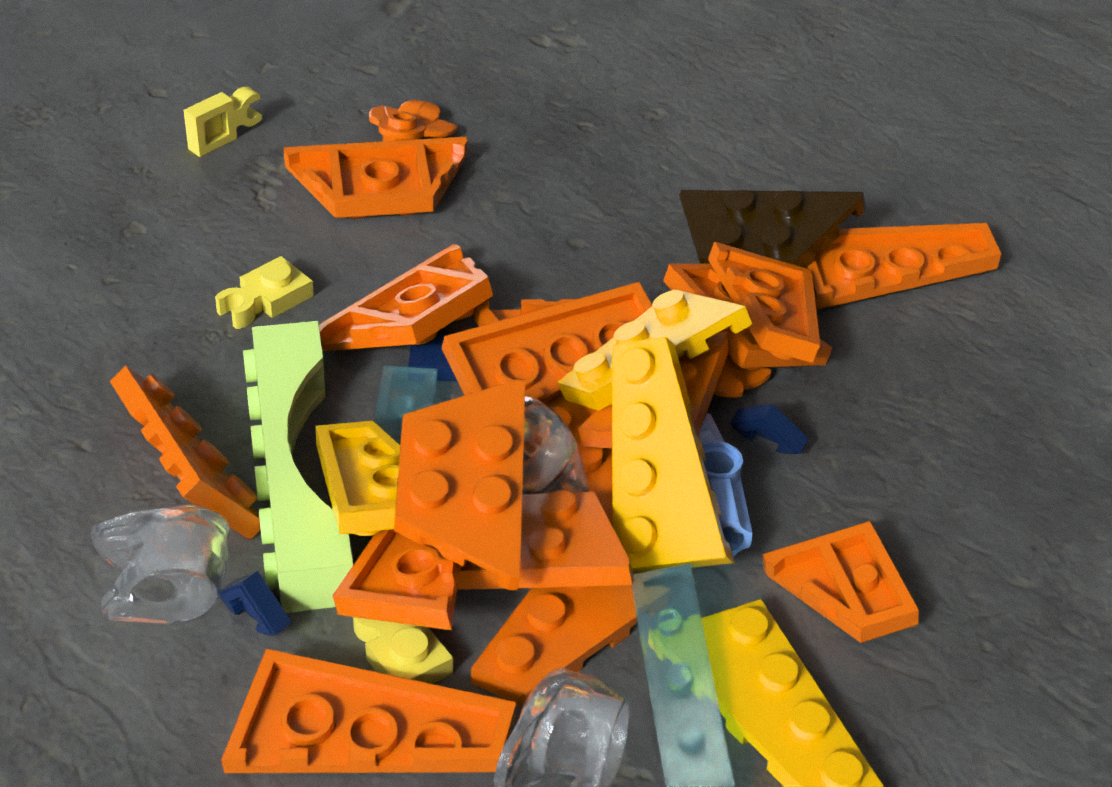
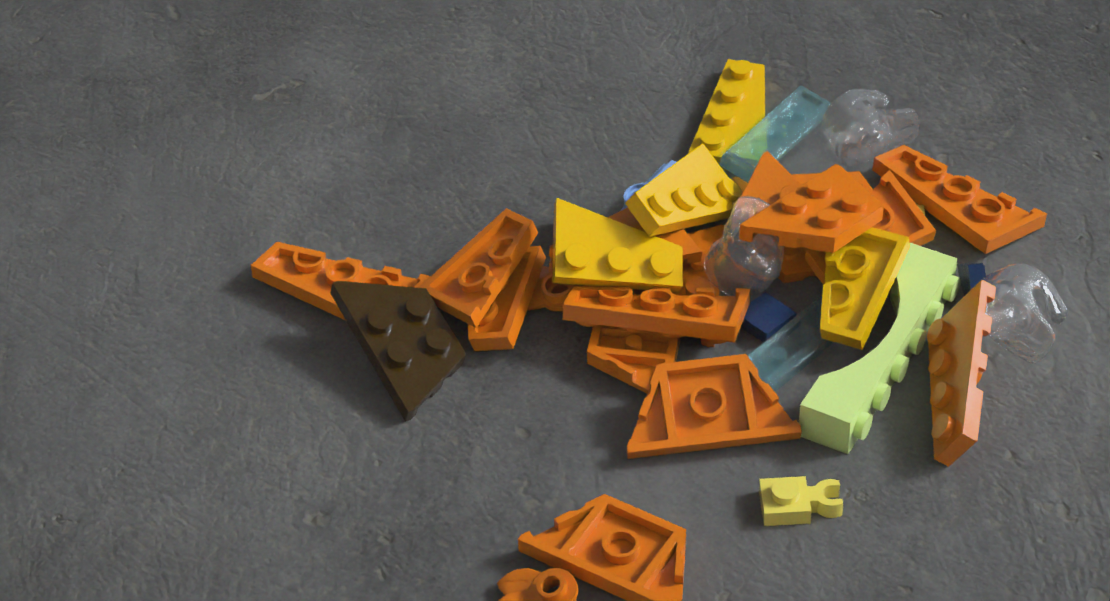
camera: 135 degrees left, 0 degrees up
(846, 581) = (630, 138): orange wing -> none

